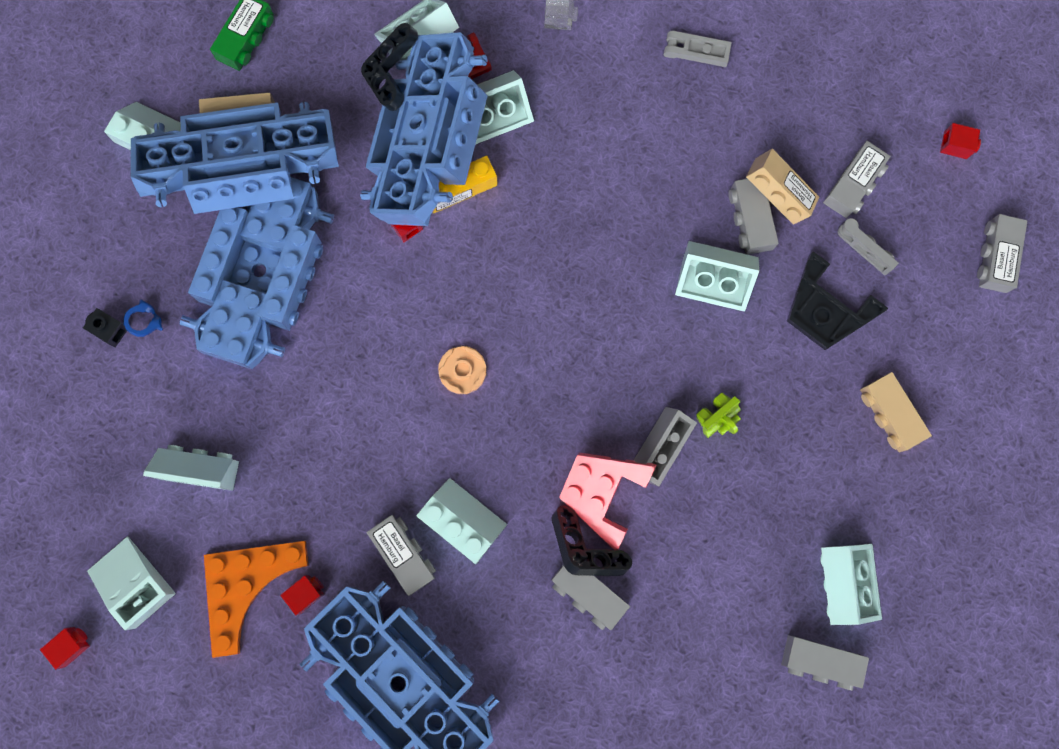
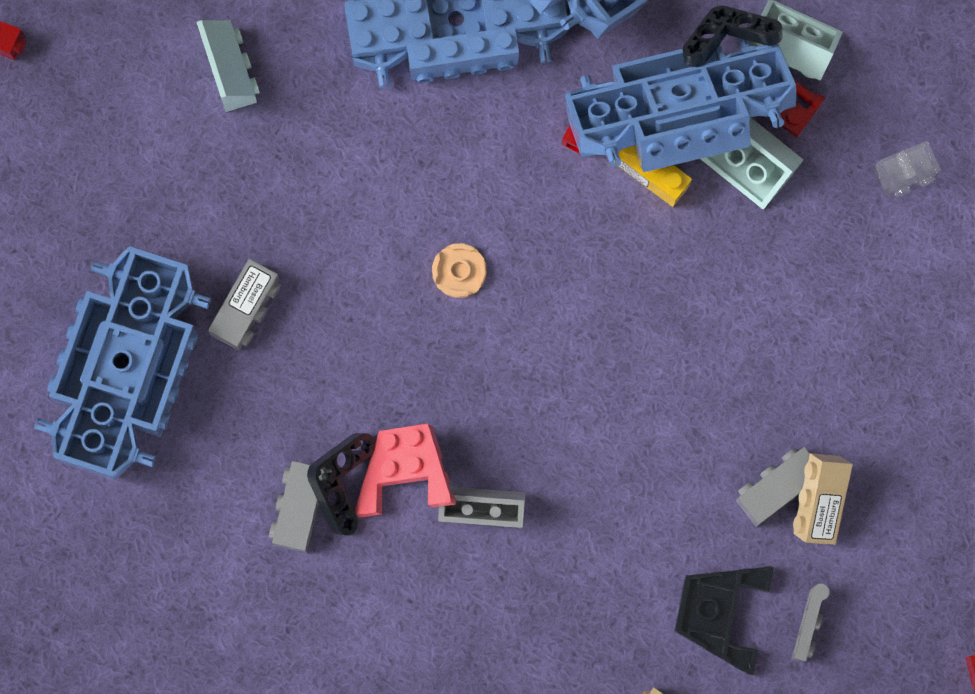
camera: 65 degrees right, 0 degrees up
(129, 585) = (89, 65): light aqua slope -> none
(236, 581) = (143, 163): orange plate -> none
(303, 594) = (160, 231): red brick -> none
(462, 520) = (307, 346): light aqua slope -> none
(697, 48) = (937, 340): light grey plate -> none
(717, 276) = (693, 479): light aqua slope -> none
(723, 419) = (544, 556): lime hips -> none
(857, 180) = (879, 578): light grey brick -> none

